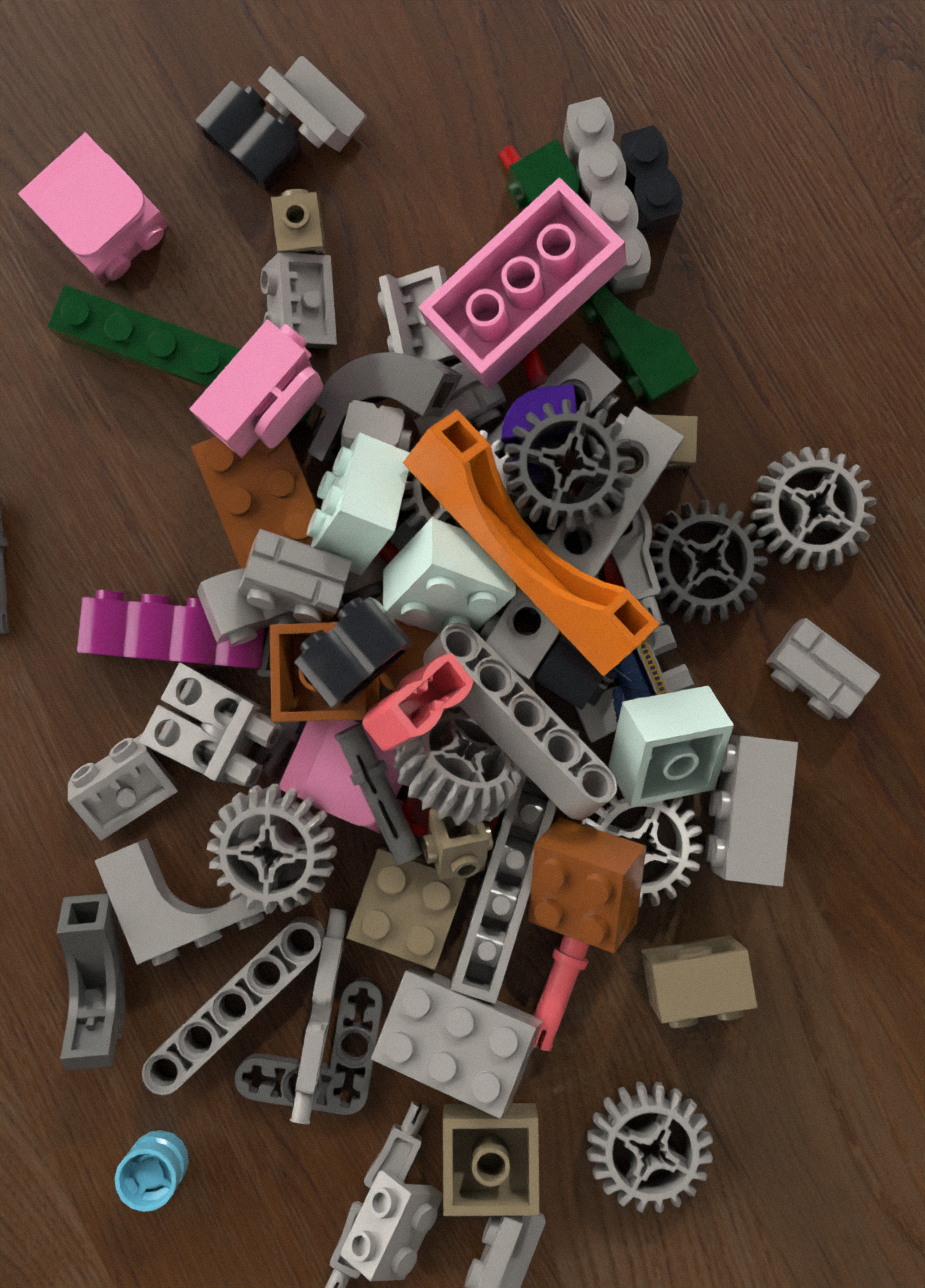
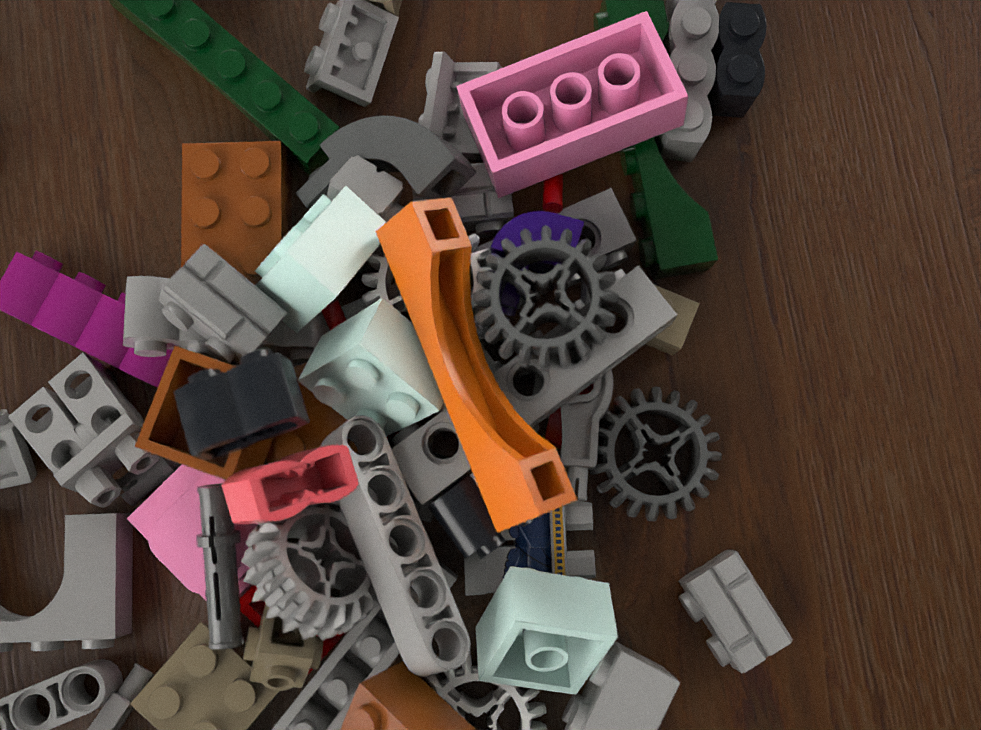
camera: 15 degrees right, 5 degrees down
(235, 850) = (65, 588): light grey gear -> none
(261, 391) = (262, 107): bright pink brick -> none
(829, 515) = (798, 455): light grey gear -> none

